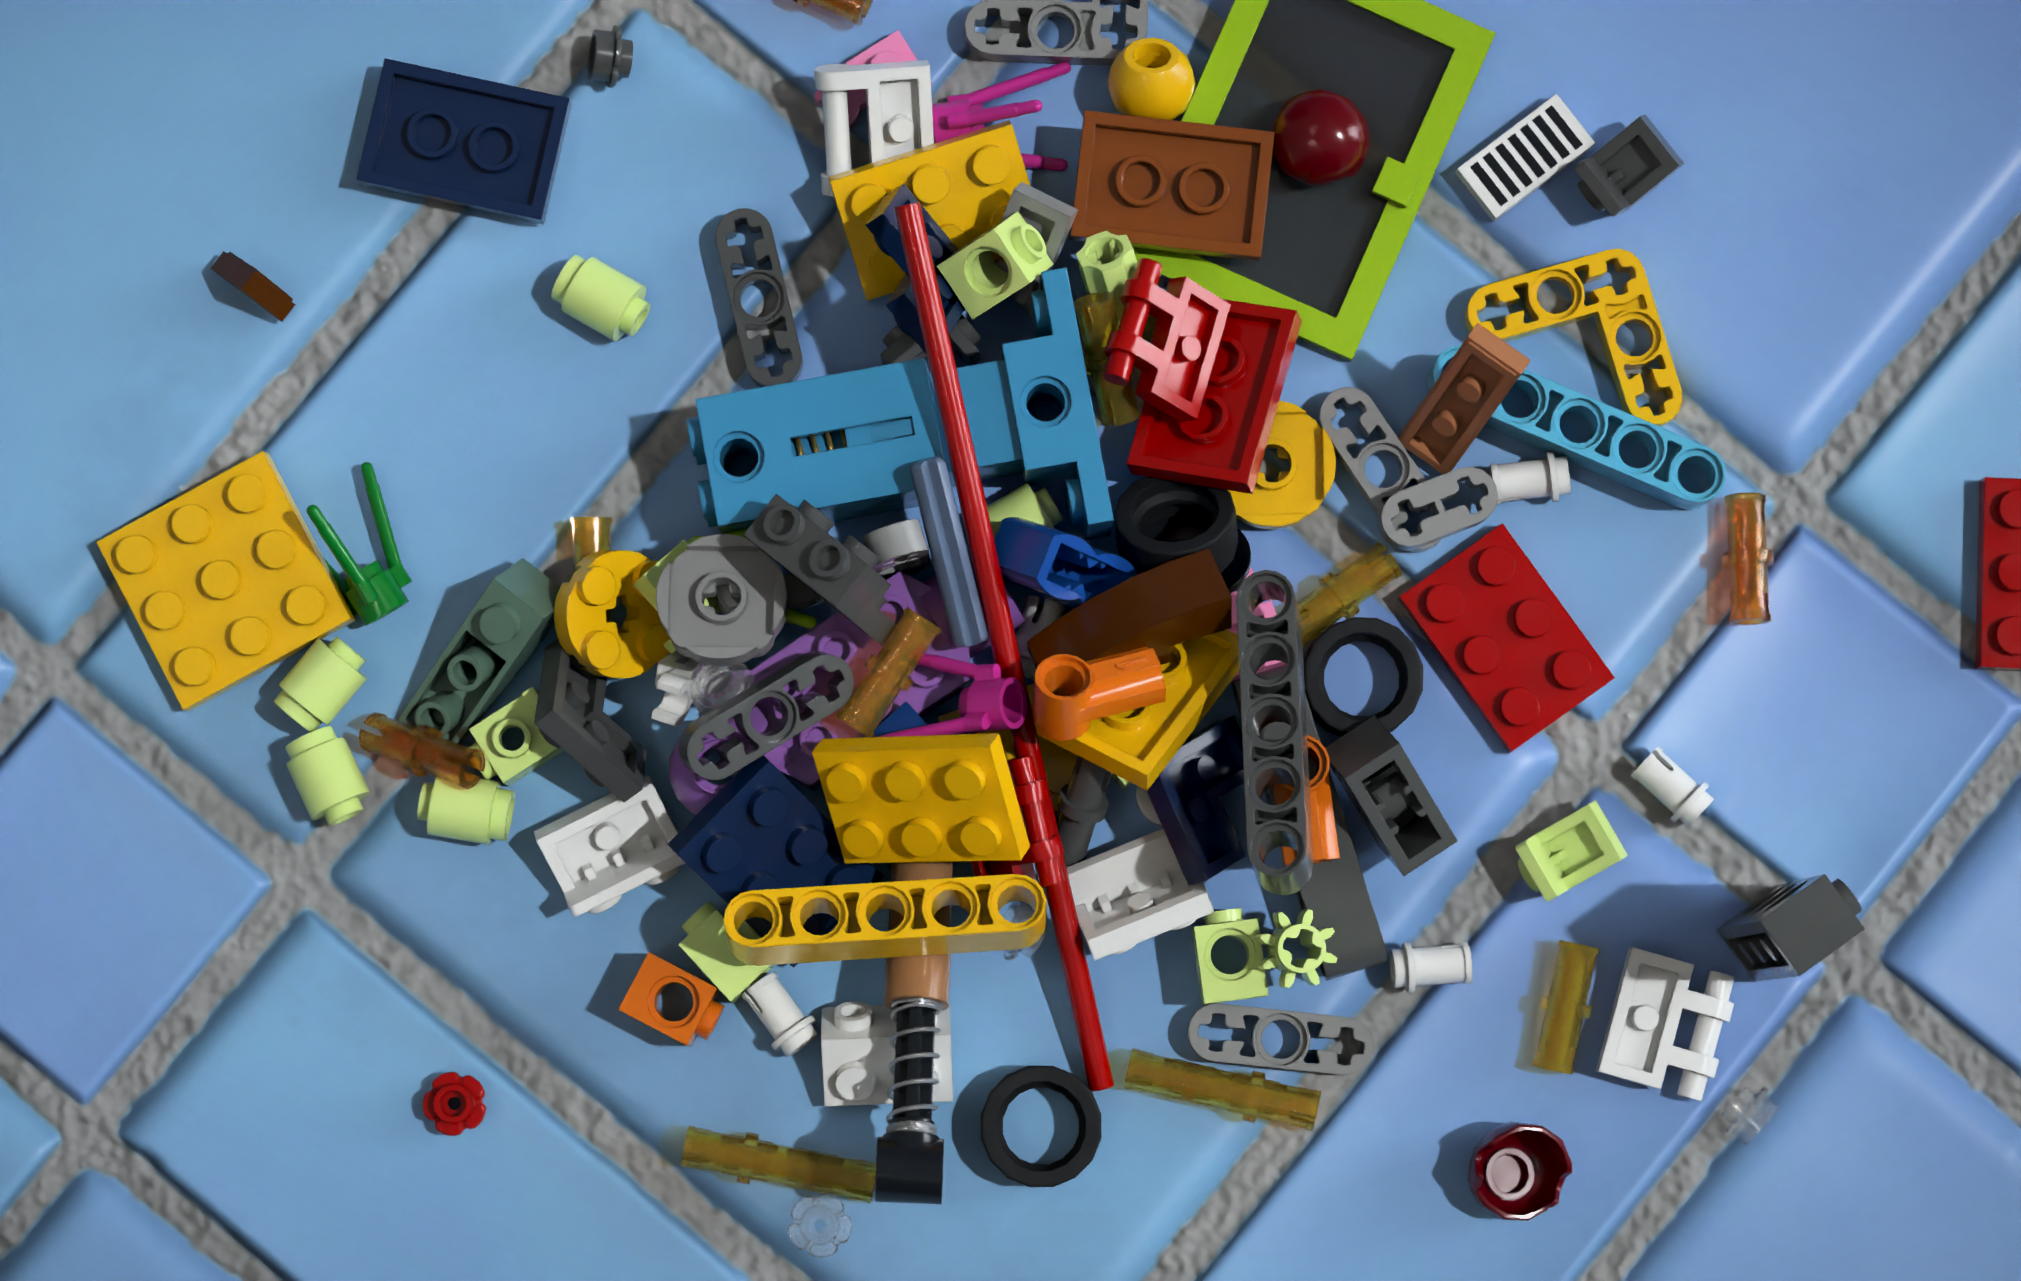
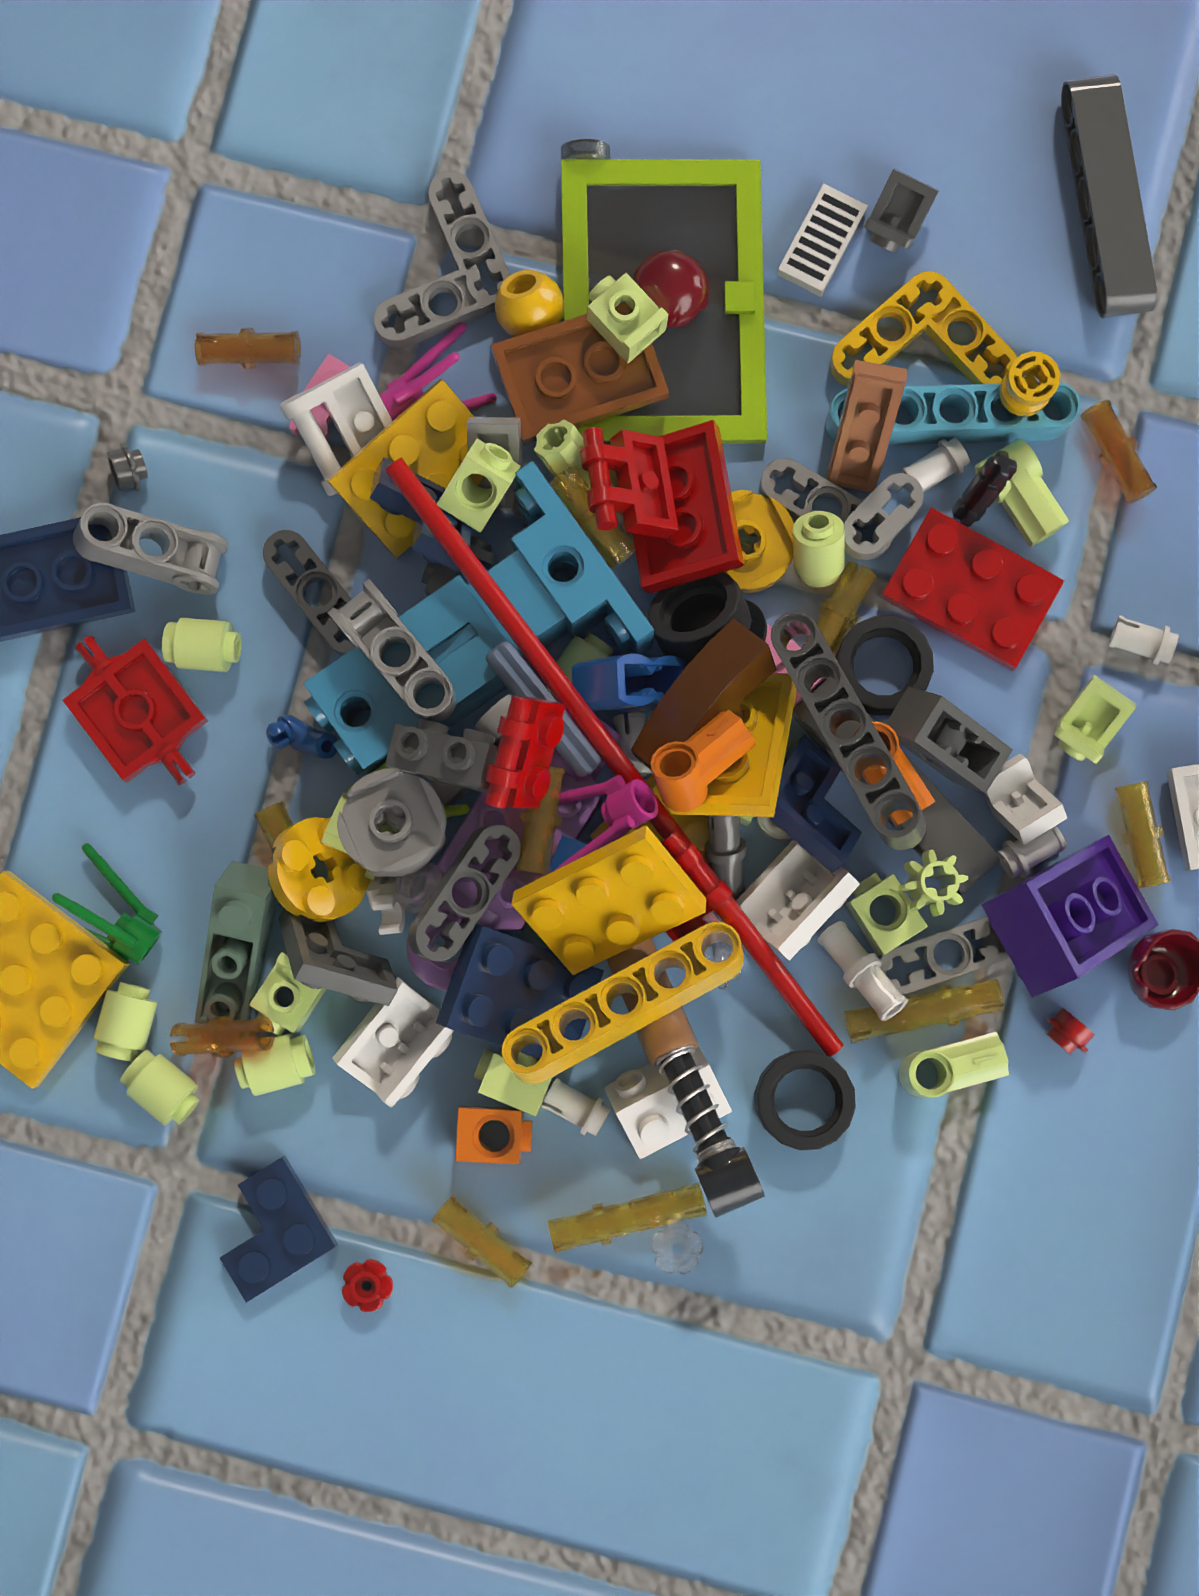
camera: 20 degrees left, 0 degrees up
(398, 1006) = (291, 1233): none -> dark blue plate
(492, 337) = (135, 710): none -> red plate
(605, 1114) = (481, 1241): none -> clear yellow pin
(632, 189) = (179, 546): none -> light grey piece
(664, 454) = (301, 737): none -> blue arm
(803, 373) = (373, 627): none -> light grey piece
(903, 592) = (524, 753): none -> red plate
(1173, 1011) = (862, 970): none -> white pin
(1232, 1168) = (957, 1065): none -> yellowish green piece
(1246, 172) = (629, 332): none -> yellowish green brick
(1349, 511) = (819, 548): none -> yellowish green brick
(1375, 1190) = (1069, 1032): none -> red plate
(1437, 1058) = (1070, 917): none -> dark purple slope
(1445, 904) = (1022, 801): none -> white bracket
(1568, 531) = (984, 488): none -> black axle
(1612, 537) = (1028, 497): none -> yellowish green piece
(1662, 446) = (1023, 394): none -> yellow wheel
(1877, 259) = (1108, 196): none -> dark grey beam

